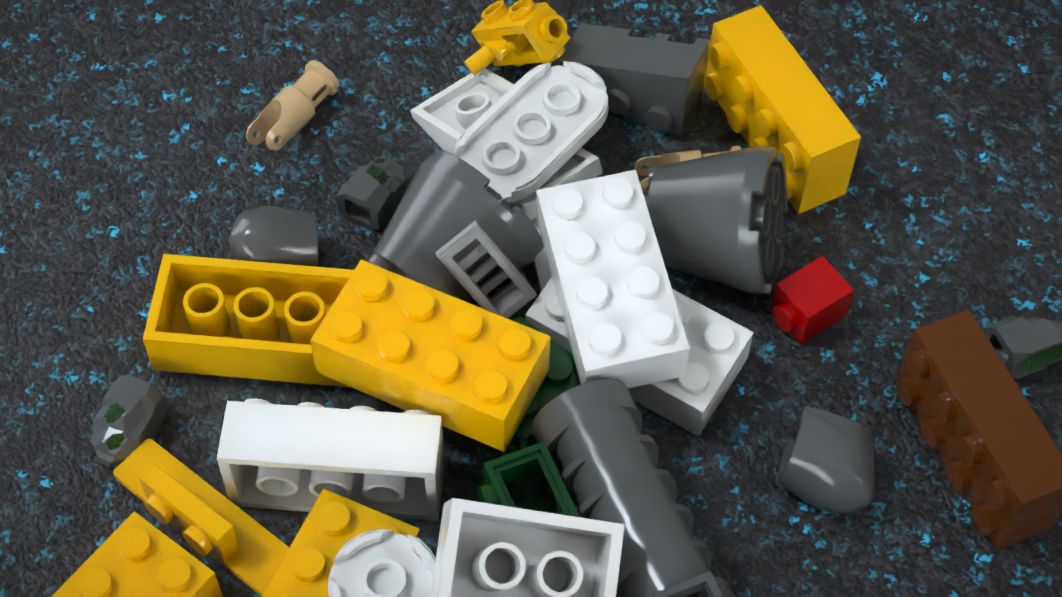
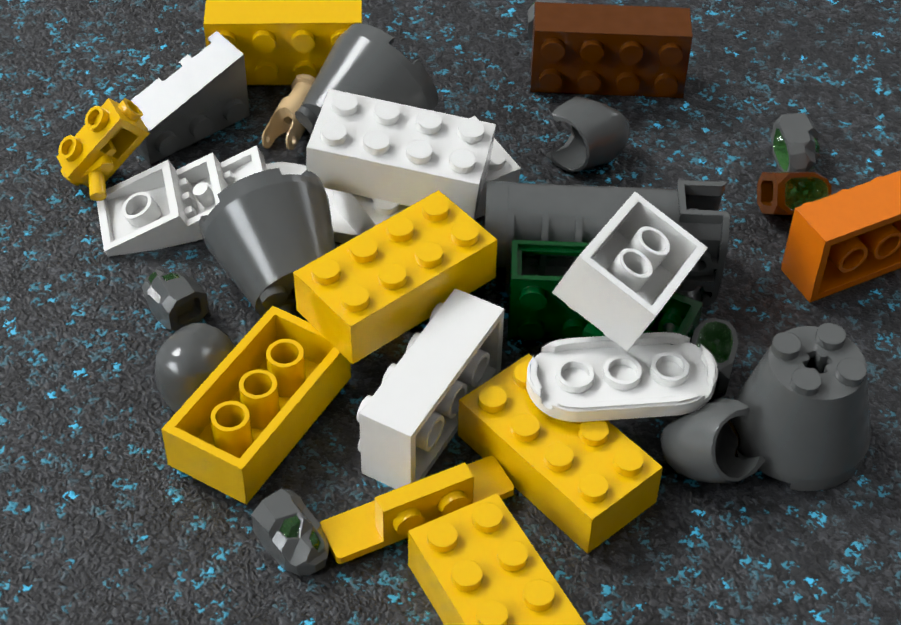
camera: 65 degrees left, 10 degrees down
(293, 106) = (41, 314): tan piece -> none
(510, 297) = (337, 218): light grey slope -> none
(535, 128) = (198, 160): white tile -> none
(811, 300) = (453, 90): red brick -> none

